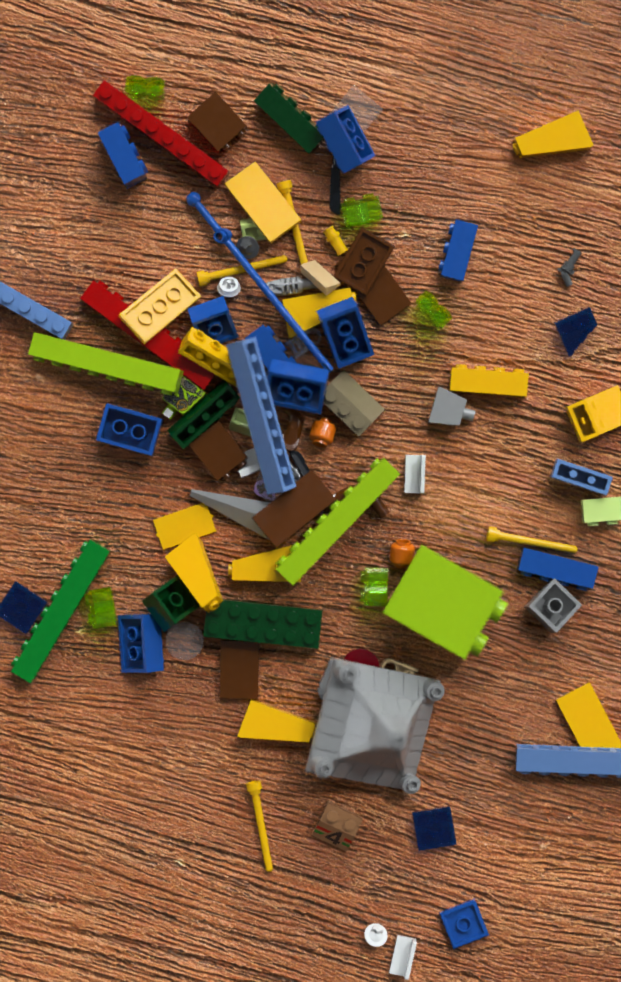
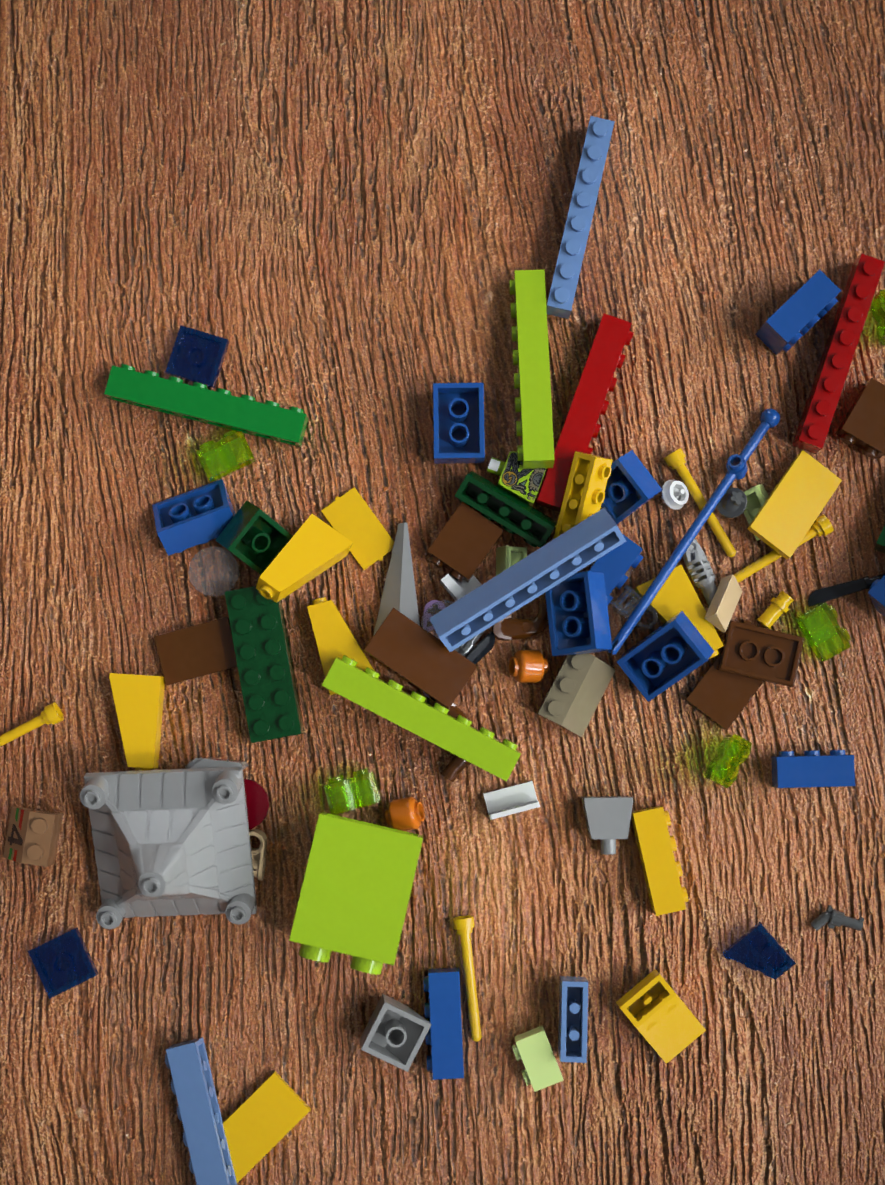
camera: 75 degrees right, 5 degrees down
(159, 306) = (624, 414): yellow tile -> none

